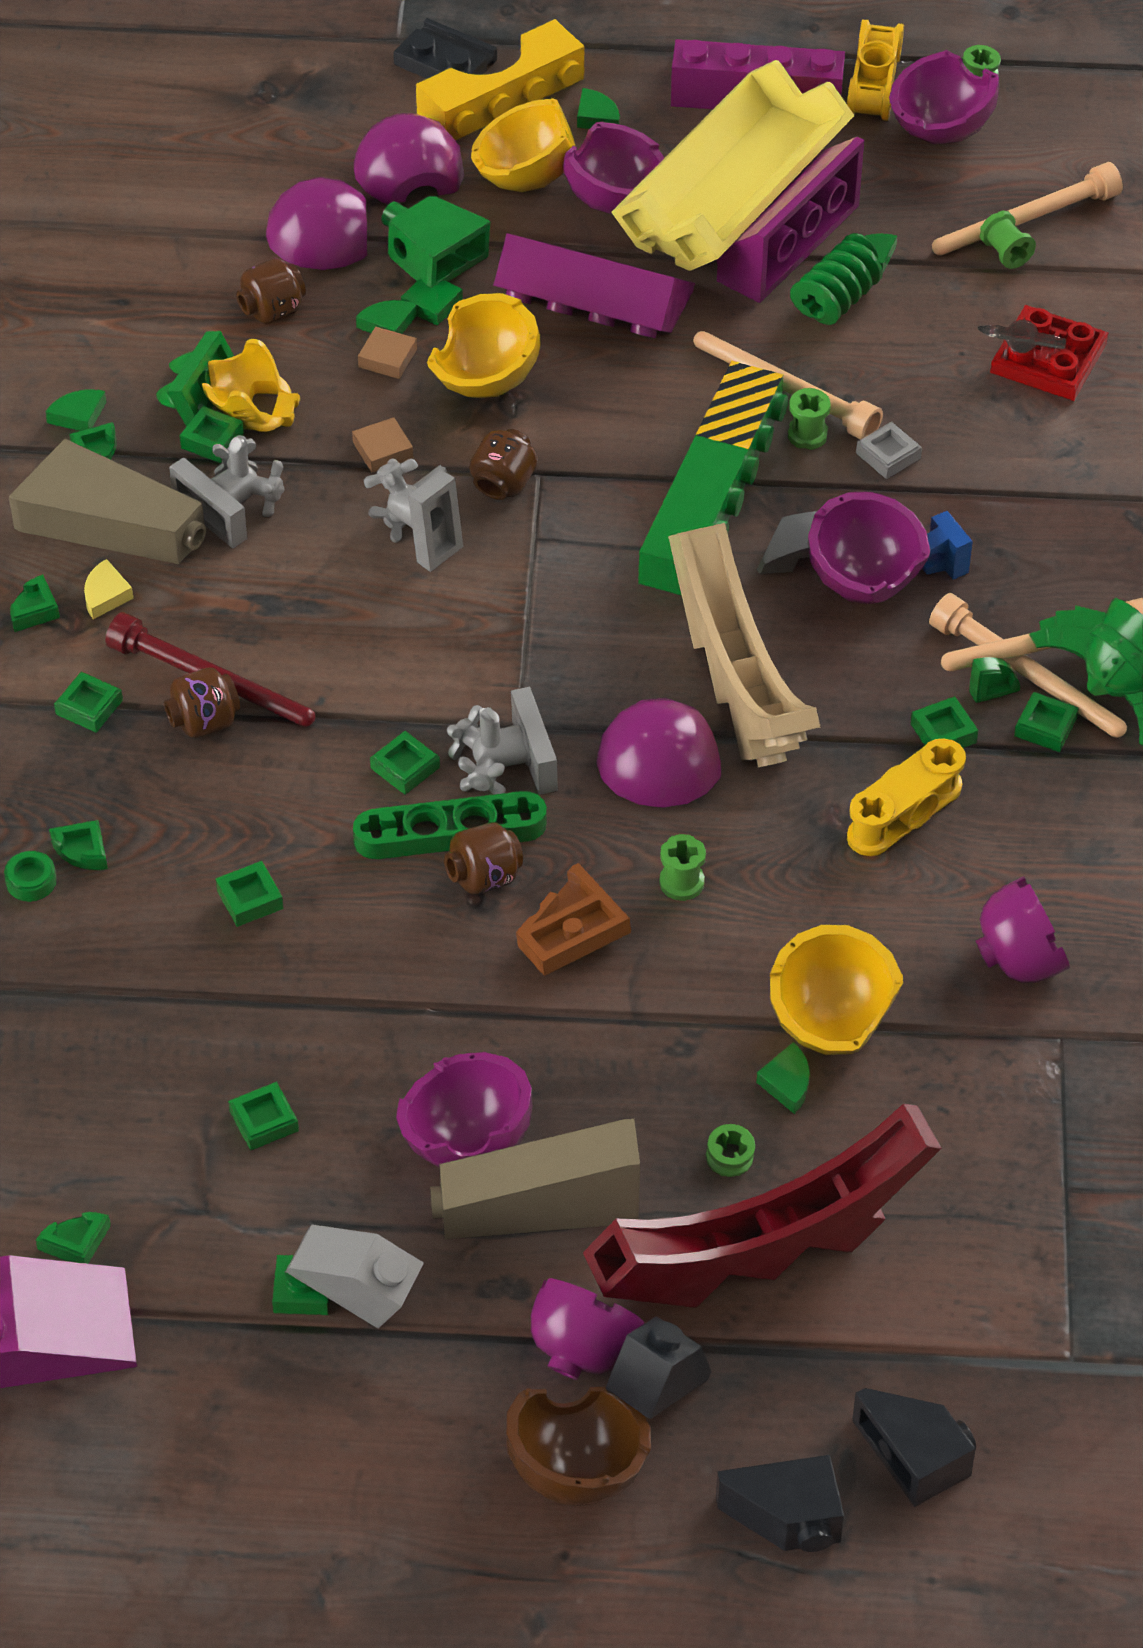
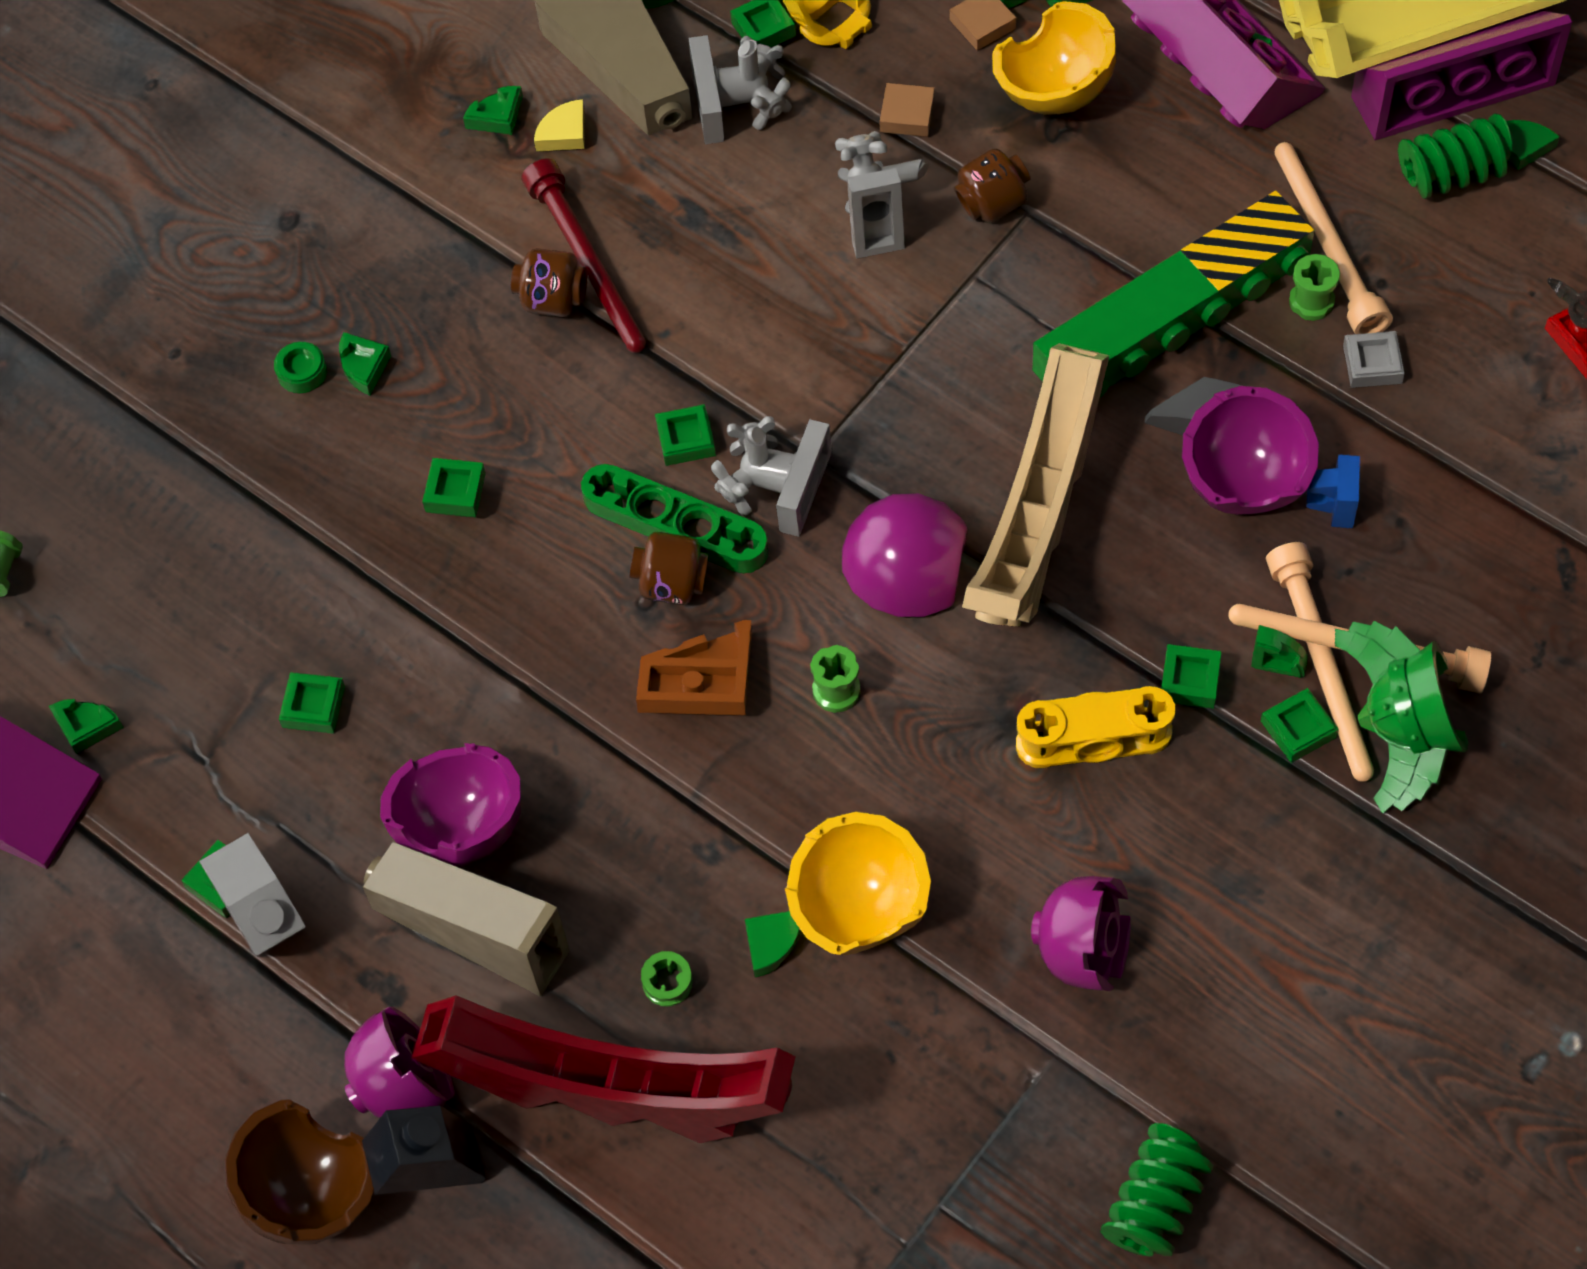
camera: 40 degrees right, 10 degrees up
(88, 702) = (470, 228): green tile -> none

